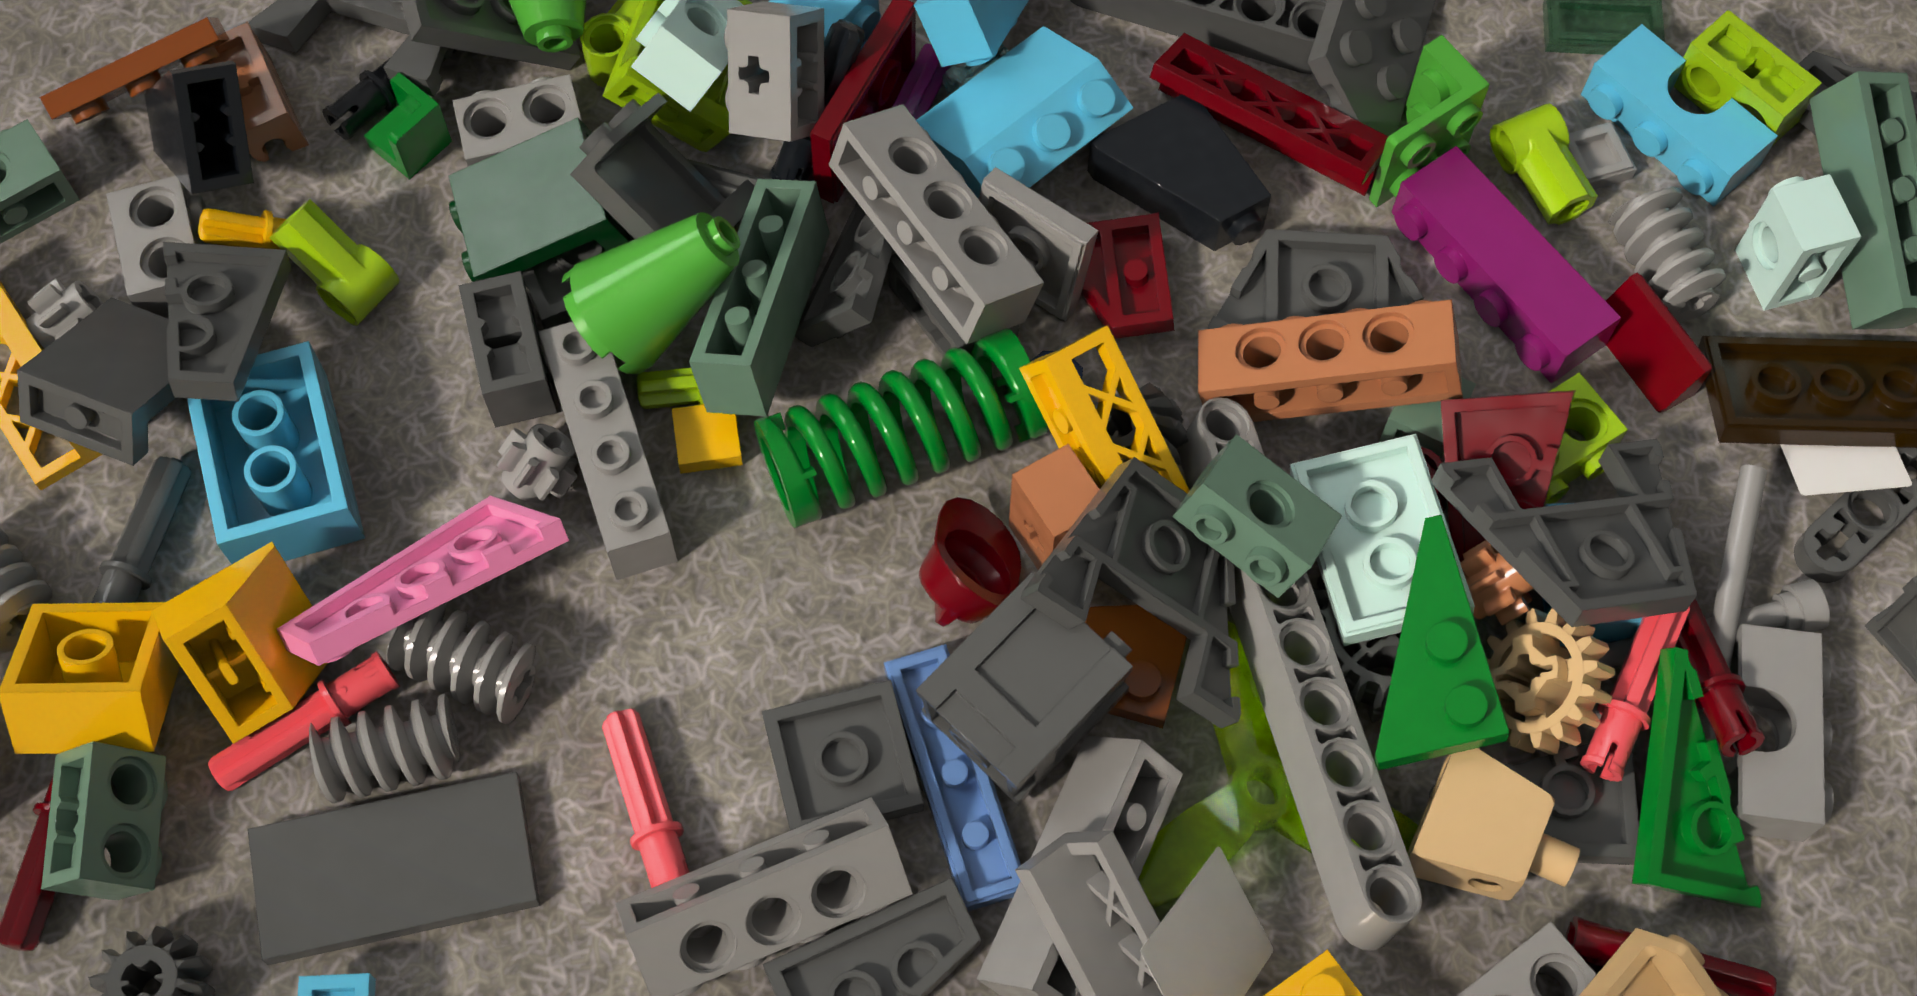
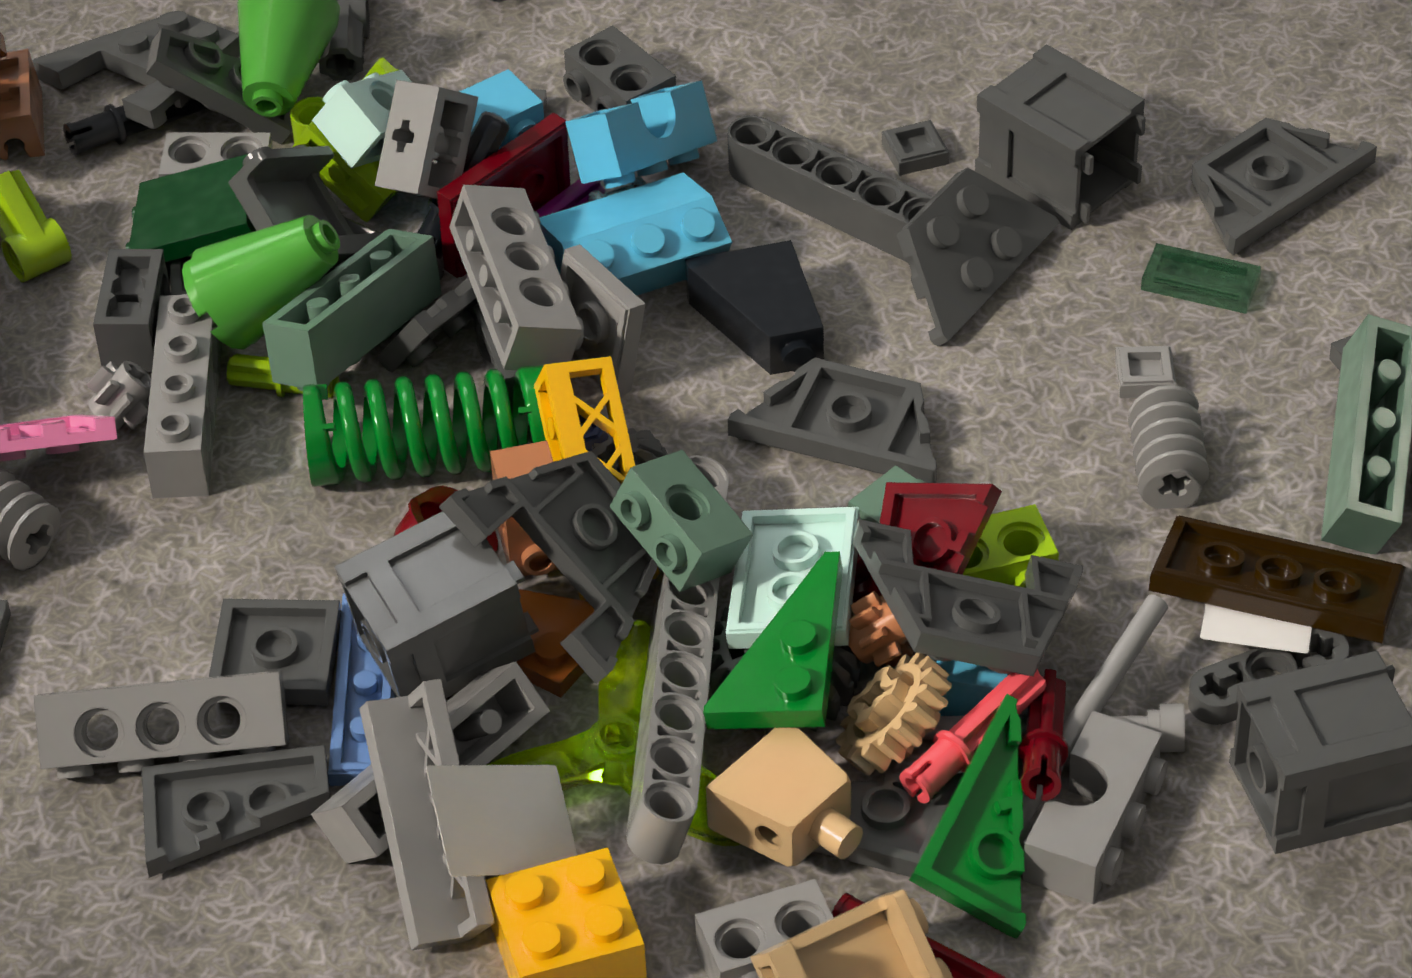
camera: 20 degrees right, 20 degrees down
(411, 131) = (129, 157): green panel -> none
(645, 799) = (100, 662): coral axle -> none
(705, 439) = (271, 413): yellow tile -> none
(1129, 277) = (679, 367): dark red wing -> none
(1272, 112) = (860, 277): dark red fence -> none
(1356, 377) = (817, 448): nougat brick -> none
(1439, 113) = (983, 311): bright green bracket -> none
(1503, 265) = (1015, 424): magenta brick -> none
(1539, 152) = (1090, 355): lime piece -> none
(1655, 346) = (1123, 511): dark red slope -> none
(1704, 150) = (1245, 380): medium azure arch -> none
(1743, 65) = (1295, 331): lime brick -> none
(1797, 241) = (1281, 451): light aqua brick -> none

